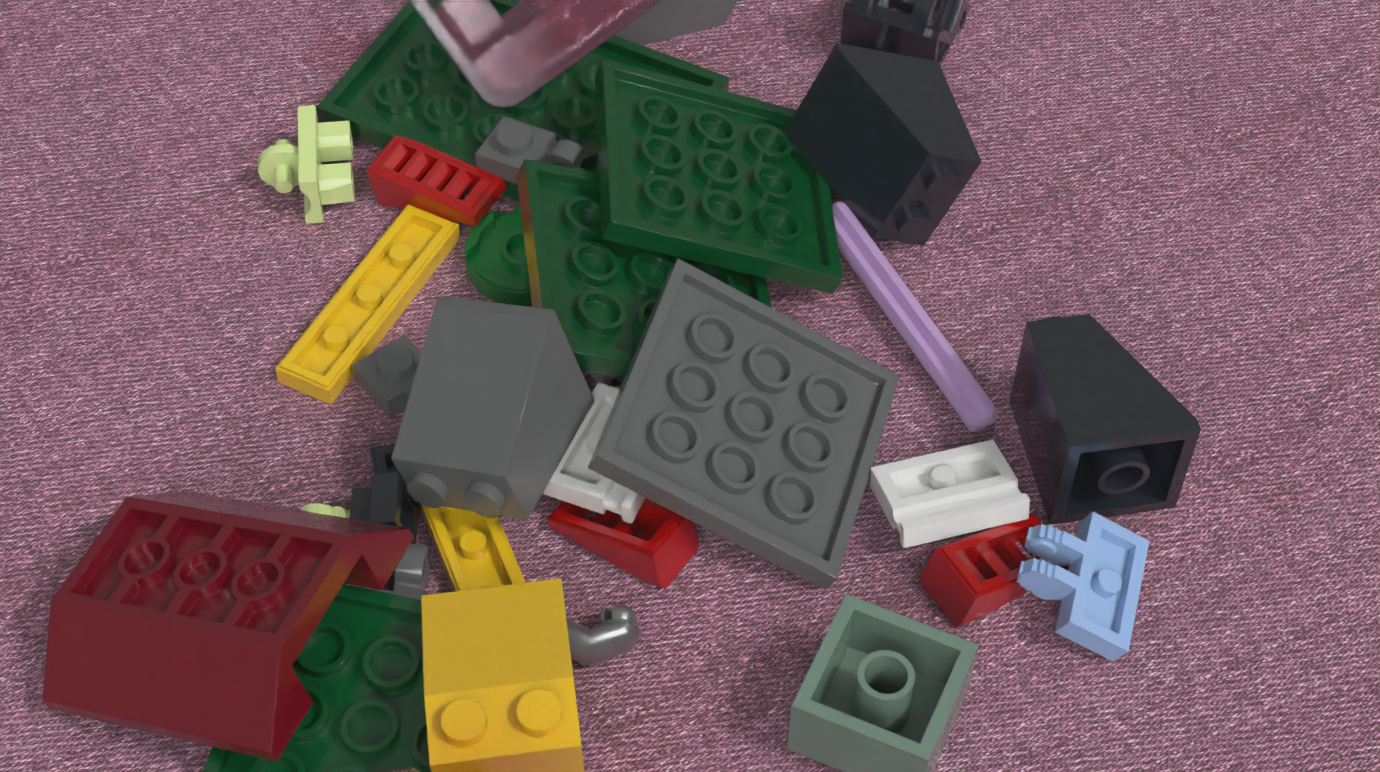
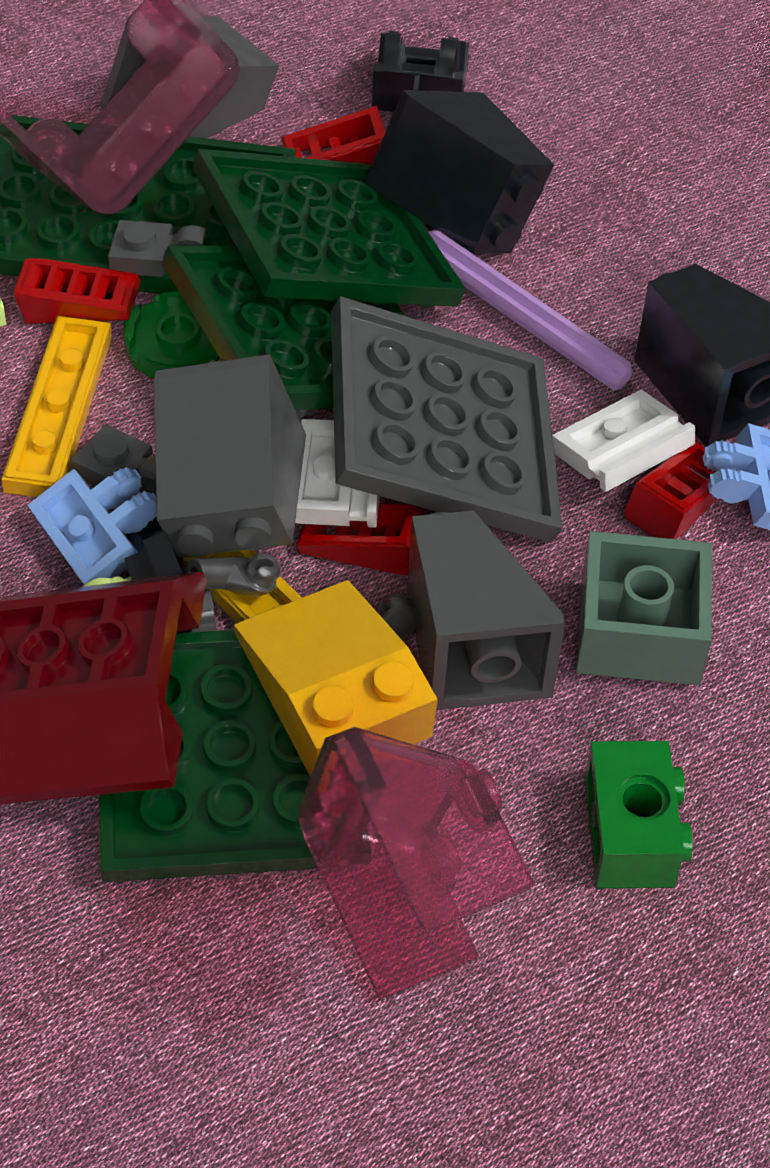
camera: 20 degrees left, 0 degrees up
(331, 443) = (85, 530): none -> light blue hinge
(463, 538) = (238, 574): none -> flat silver arm
(683, 657) = (479, 615): none -> dark grey slope
(791, 75) = (351, 137): none -> red slope

